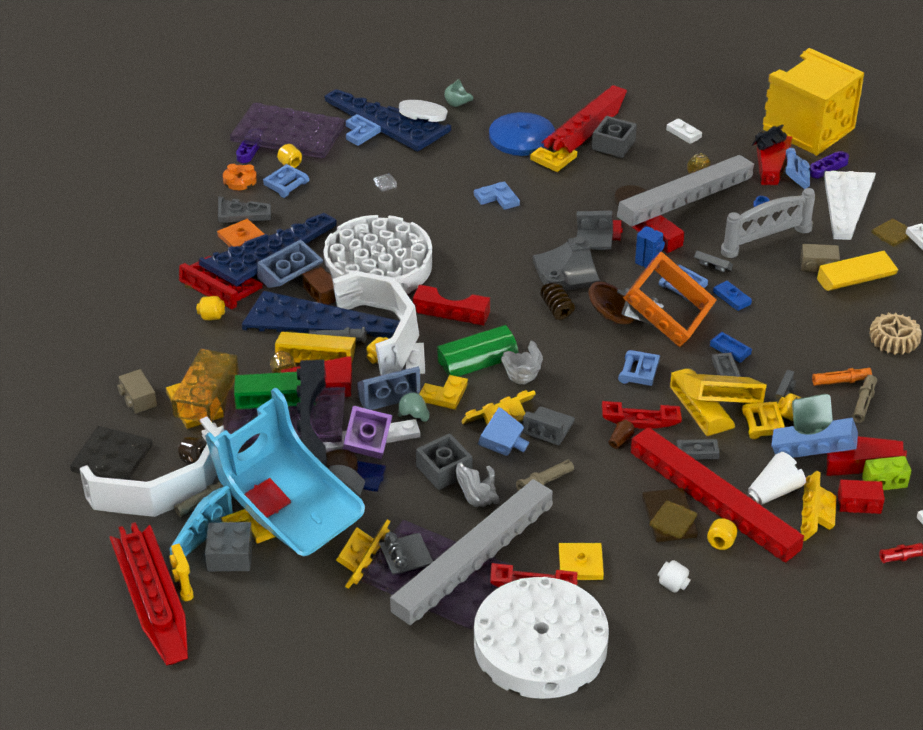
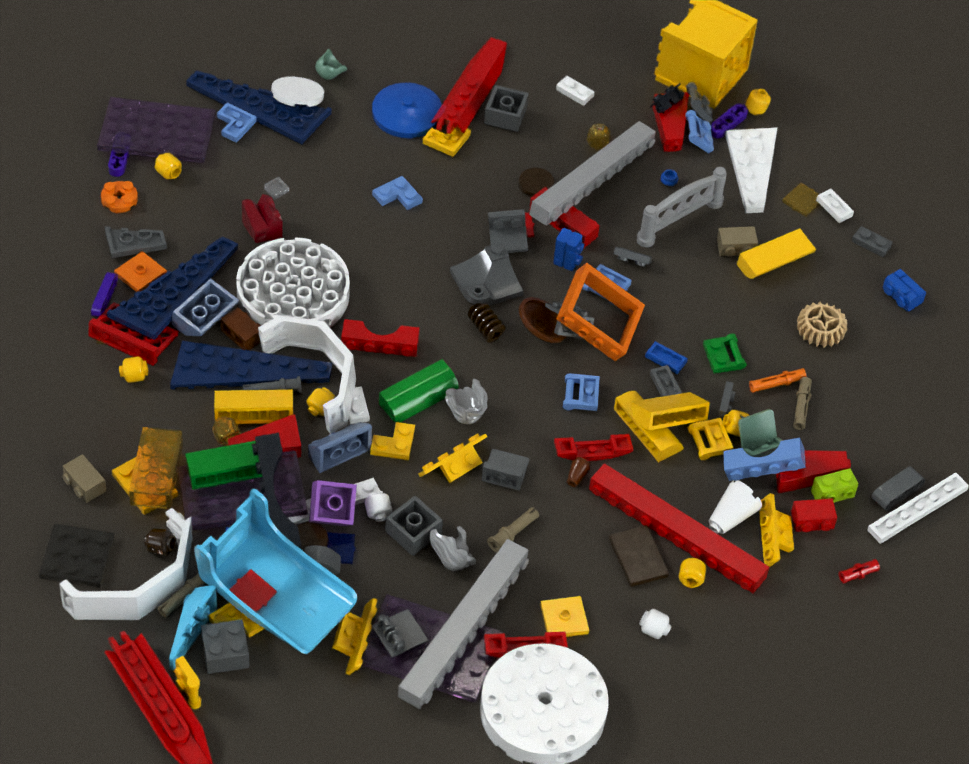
camera: 15 degrees left, 10 degrees up
(202, 247) = (104, 294): none -> dark purple beam
(283, 176) = (166, 193): medium blue plate -> none
(362, 200) = (262, 219): none -> dark red piece
(411, 440) = (378, 506): none -> white head
(415, 405) = (369, 464): sand green hair -> none
(503, 434) = (465, 487): medium blue torso -> none
(673, 519) = (644, 562): clear yellow piece -> none
(700, 448) = (655, 479): dark grey plate -> none
(732, 295) = (657, 294): blue plate -> none
(785, 352) = (719, 357): none -> green plate
(801, 146) = (699, 102): none -> dark grey plate
(859, 150) = (758, 101): none -> yellow head

